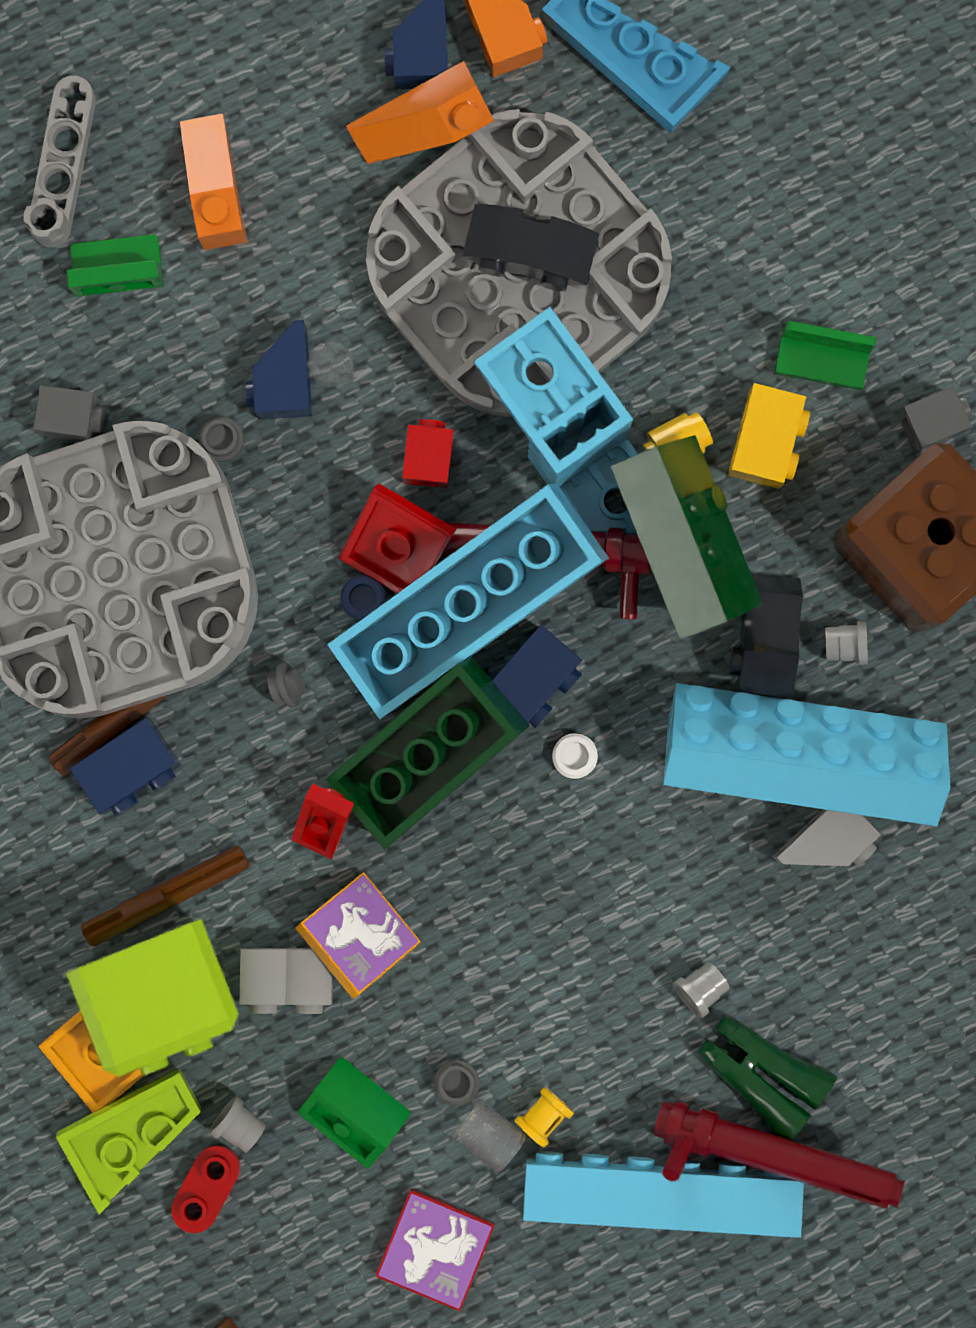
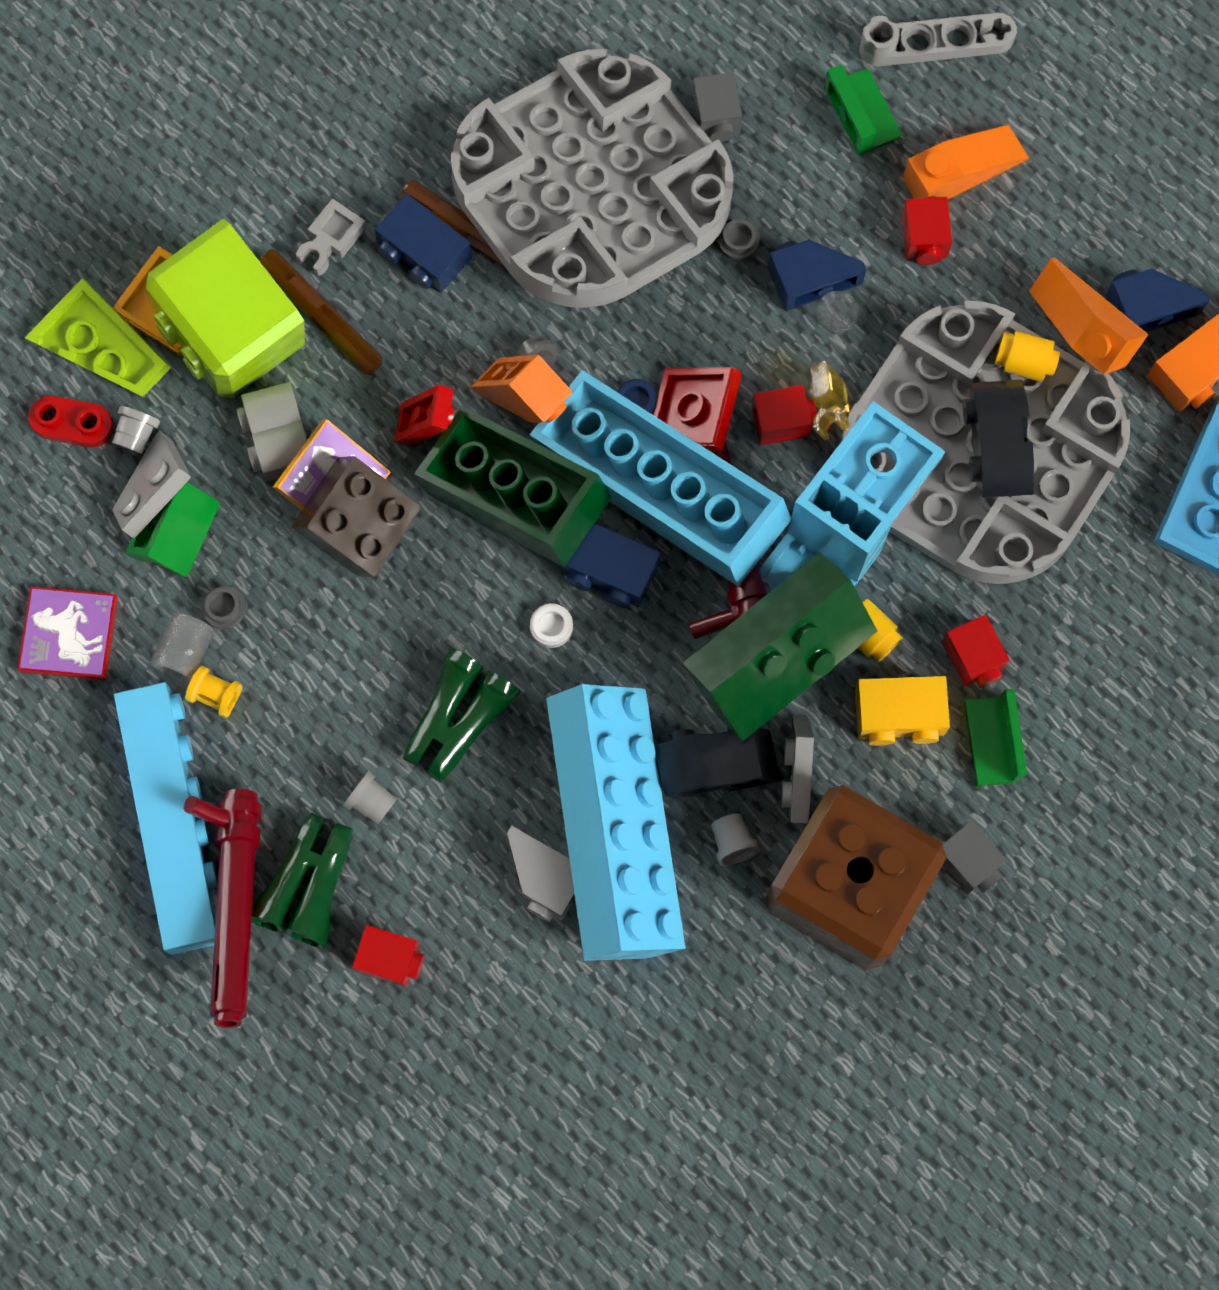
camera: 70 degrees right, 10 degrees down
(80, 856) = (332, 231): none -> light grey plate
(274, 244) = (926, 229): none -> red brick
(306, 1122) = (151, 486): none -> light grey wing
(327, 711) = (525, 388): none -> orange slope
(410, 922) = (356, 516): none -> dark brown brick
(423, 400) = (830, 397): none -> clear yellow plate
(448, 189) = (1027, 355): none -> yellow brick
(637, 841) = (456, 680): none -> dark green piece
(733, 344) = (976, 652): none -> red brick
(796, 553) = (799, 756): none -> light grey wing
(866, 1015) = (388, 956): none -> red brick

